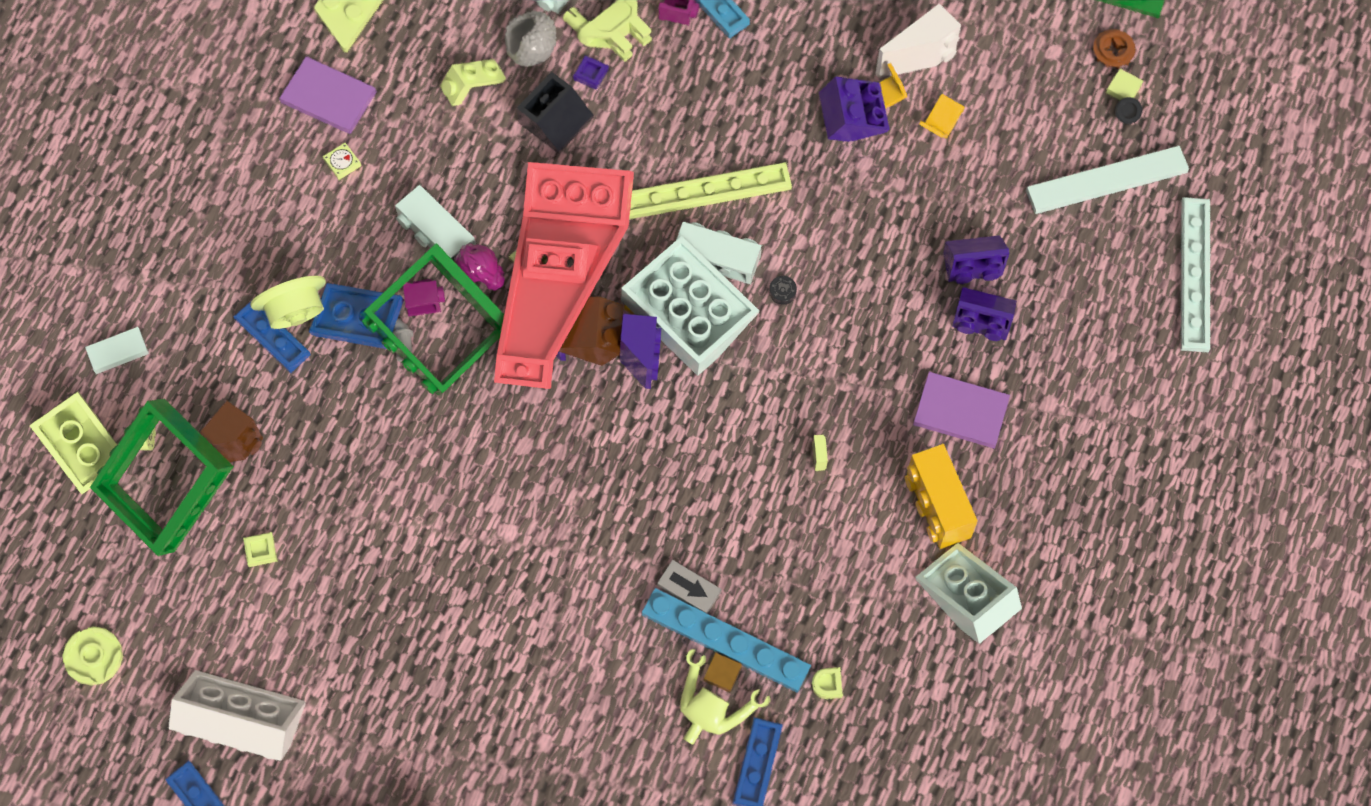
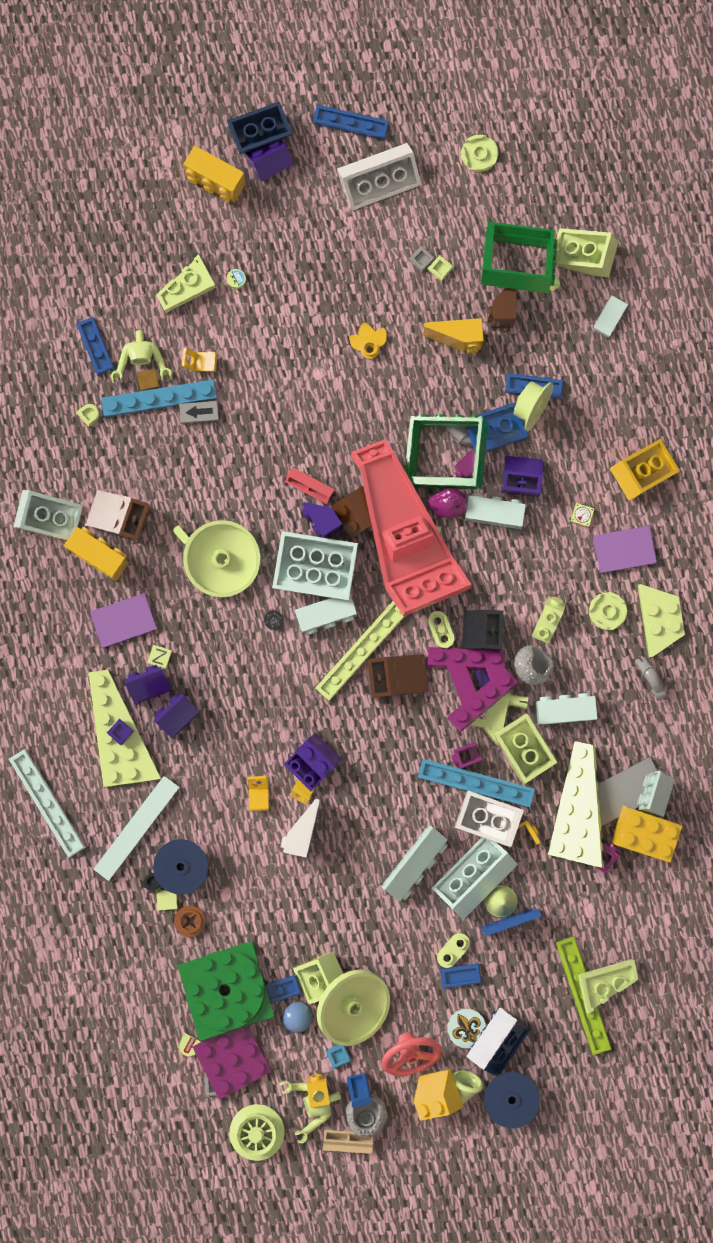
camera: 140 degrees right, 15 degrees up
(232, 156) = (644, 469): none -> yellow slope
(272, 577) = (421, 259): none -> light grey tile
(300, 440) = (459, 334): none -> yellow slope
(372, 241) = (522, 476): none -> dark purple slope
(398, 54) = (608, 611): none -> yellowish green tile
(417, 529) = (368, 338): none -> yellow plate
(516, 719) = (236, 279): none -> tile
(584, 754) = (187, 286): none -> yellowish green wing
(598, 150) = (440, 630): none -> yellowish green plate
(623, 405) = (309, 485): none -> coral piece
(627, 42) = (458, 663): none -> magenta plate
(639, 644) = (200, 361): none -> yellow bracket
(691, 133) = (397, 676): none -> reddish brown slope
(793, 390) = (221, 558): none -> yellowish green dish
(880, 528) = (118, 515): none -> slope
(947, 340) = (159, 656): none -> yellowish green tile
(1055, 283) = (120, 732): none -> dark purple tile
(1062, 280) = (118, 763): none -> yellowish green wing
(1086, 97) = (167, 870): none -> dark blue piece

